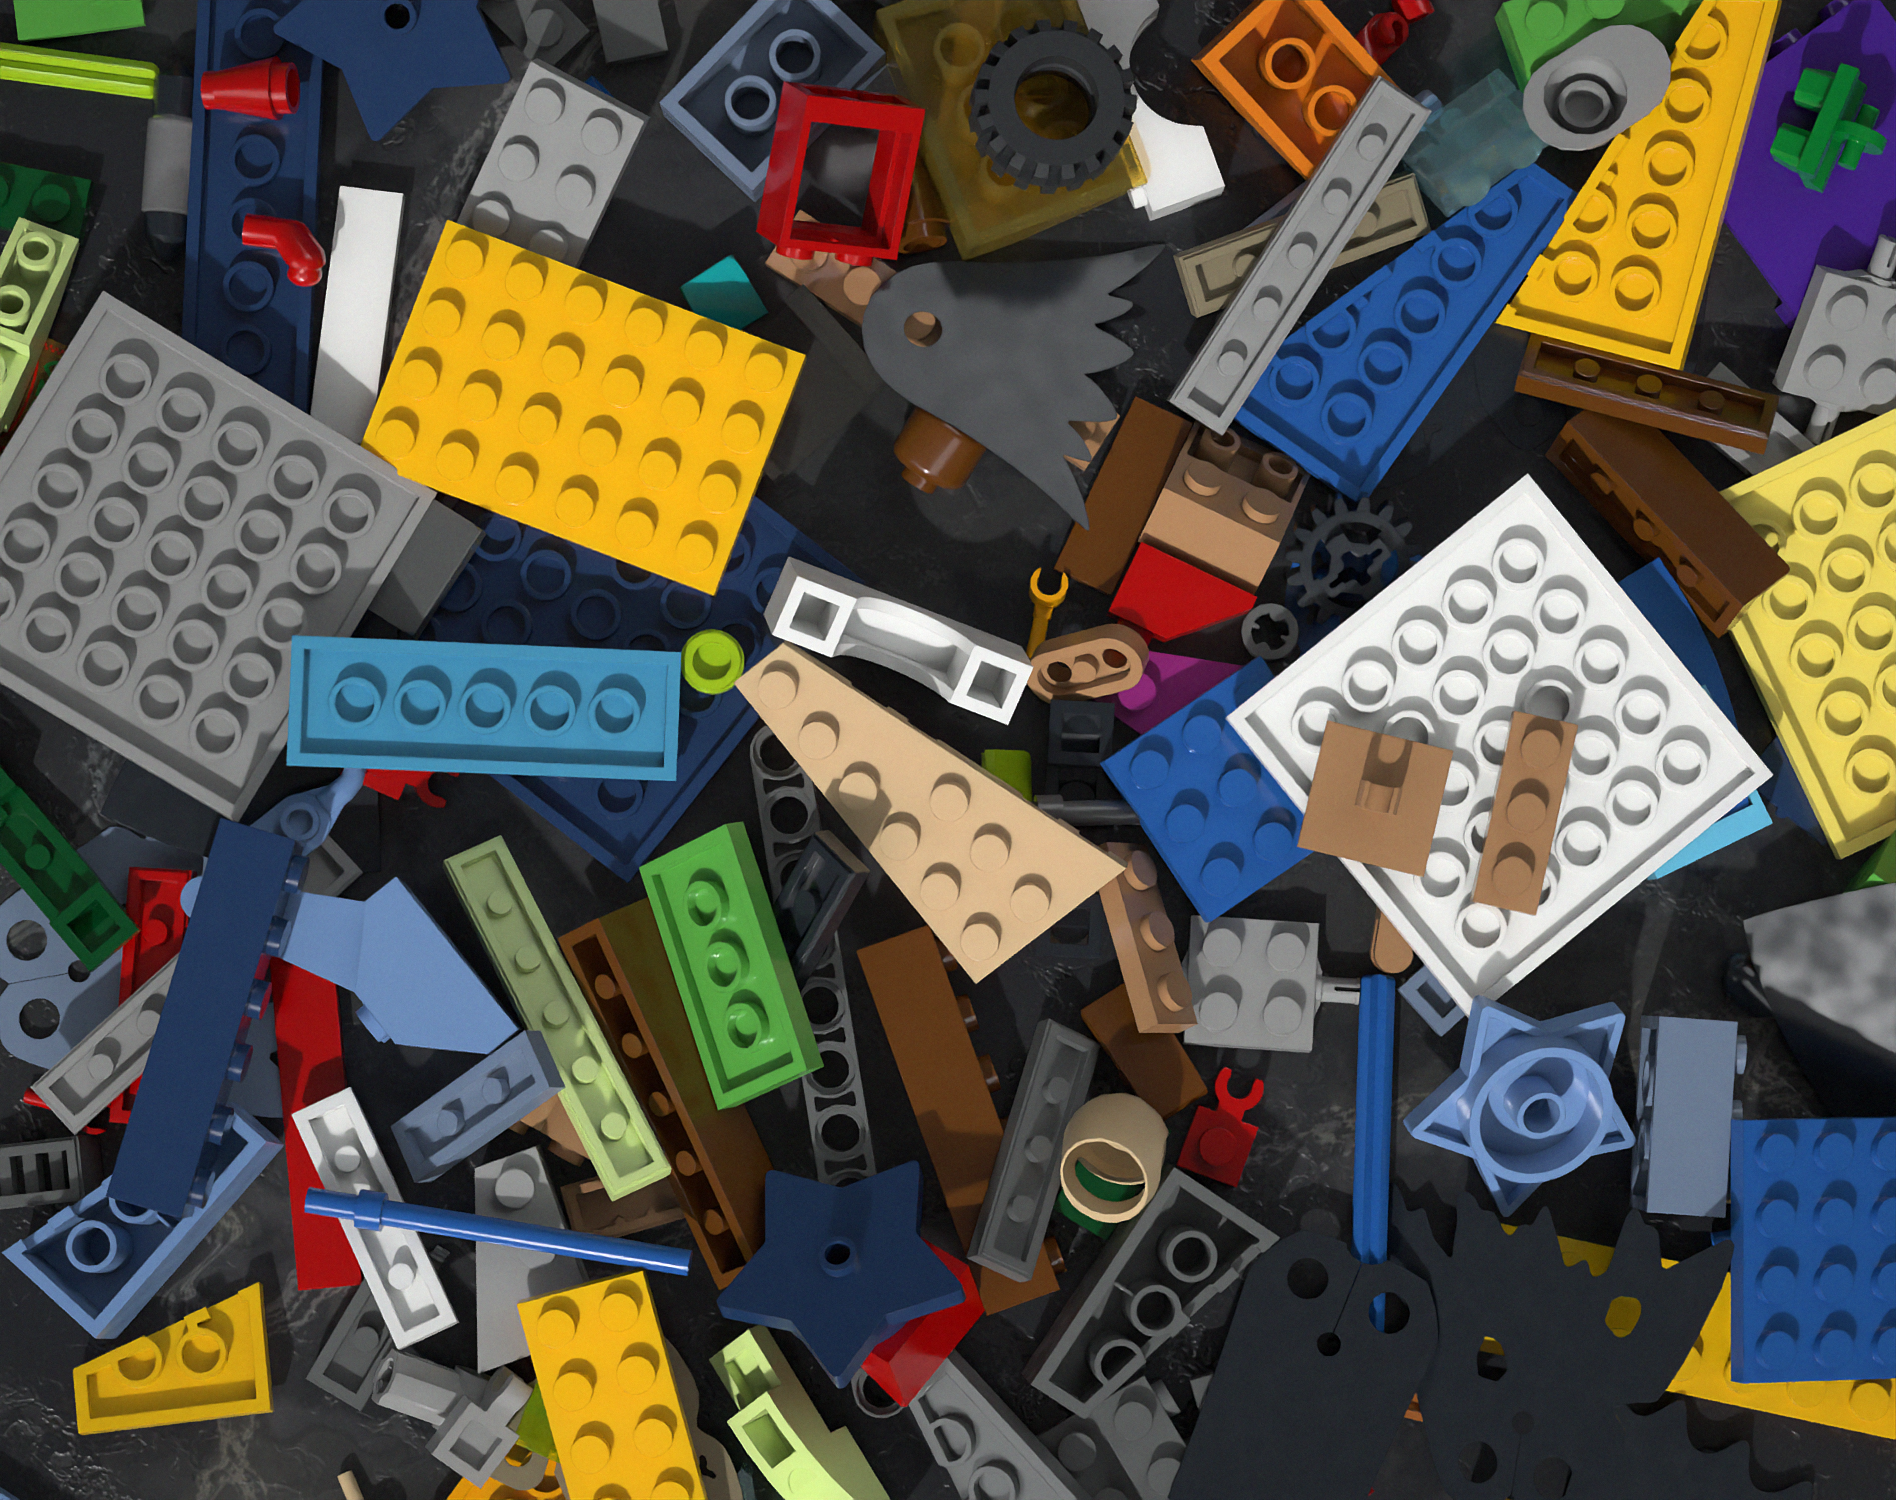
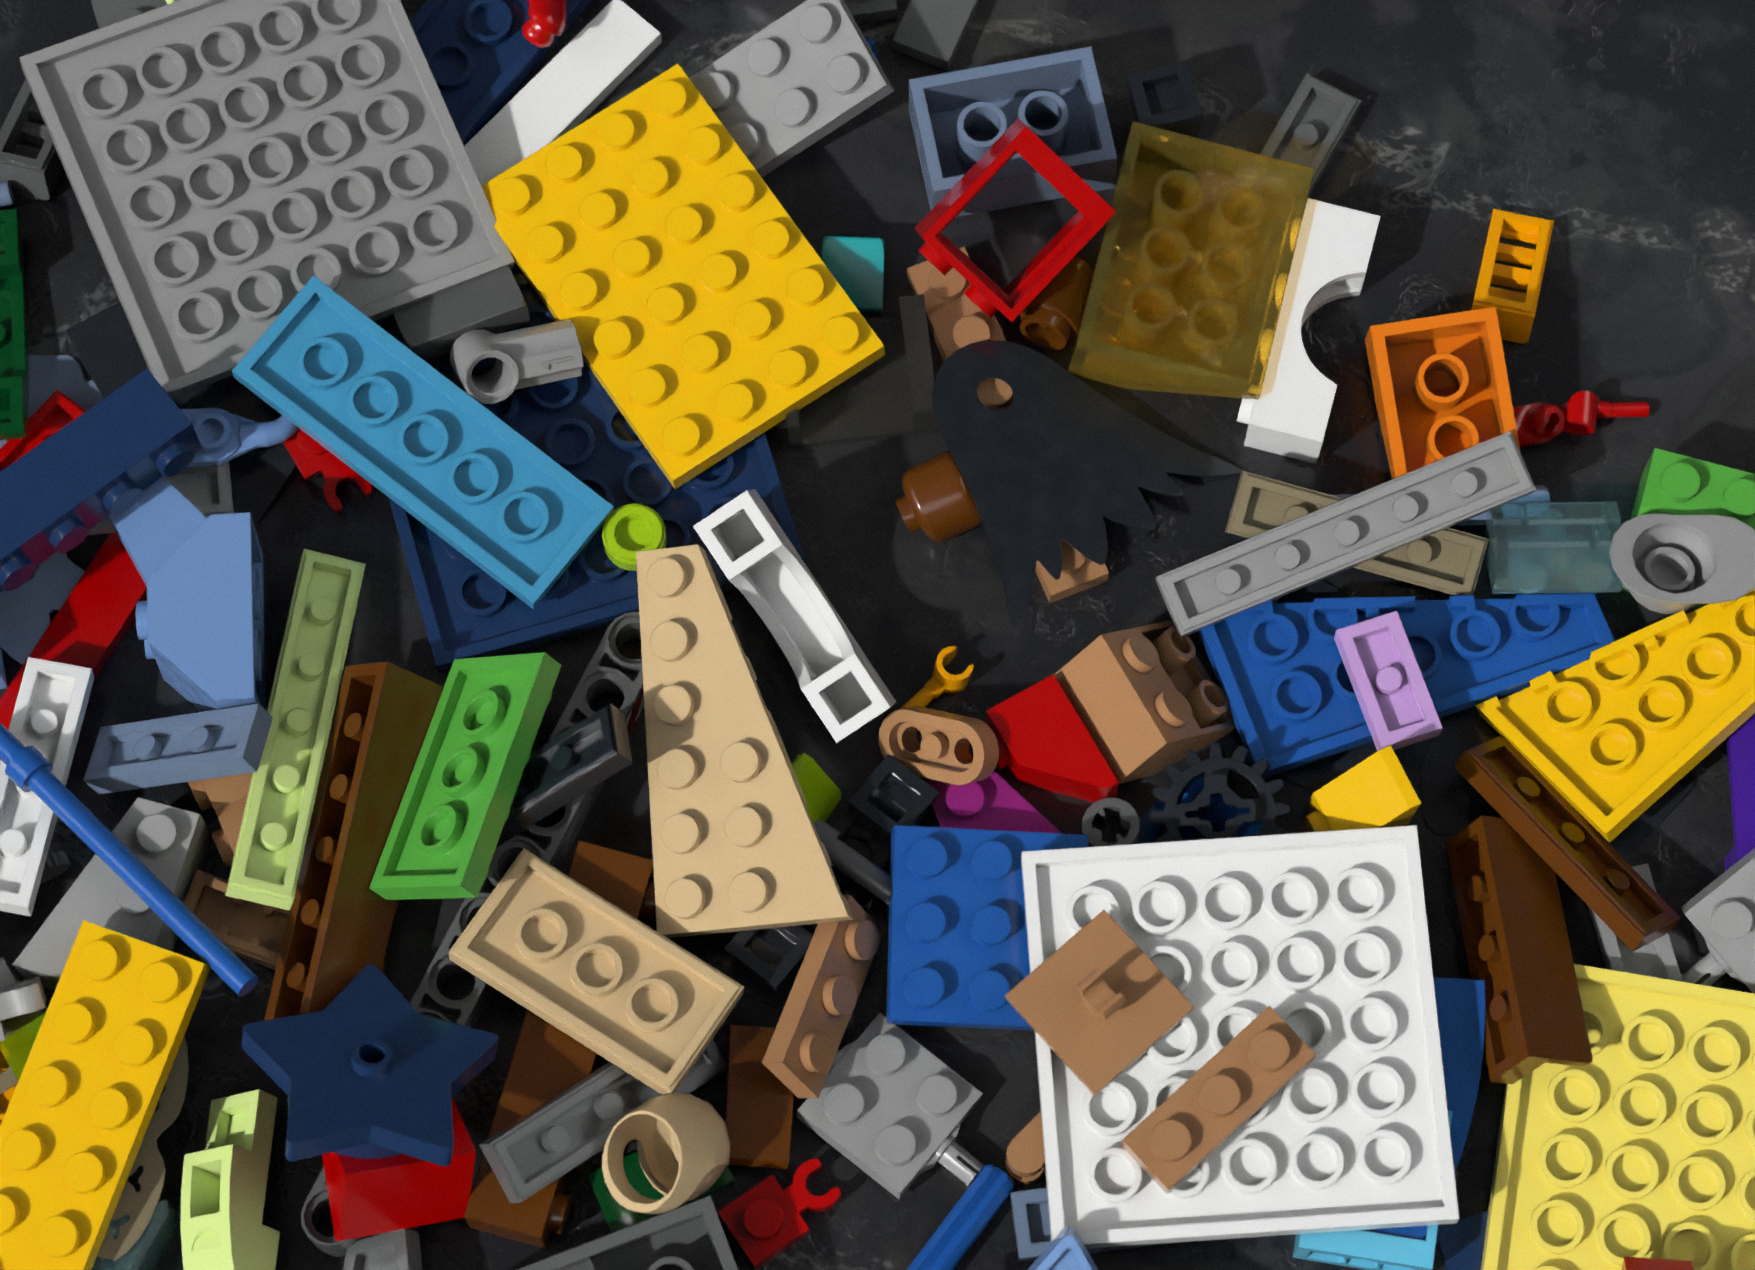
camera: 40 degrees right, 15 degrees down
(496, 596) = (522, 359): none -> light grey piece
(953, 1051) = (596, 973): none -> tan tile
(1062, 54) = (1240, 231): black tyre -> none
(1123, 496) = (1061, 634): reddish brown tile -> none
(1418, 360) = (1388, 682): none -> lavender plate
(1464, 478) = (1364, 797): none -> yellow slope

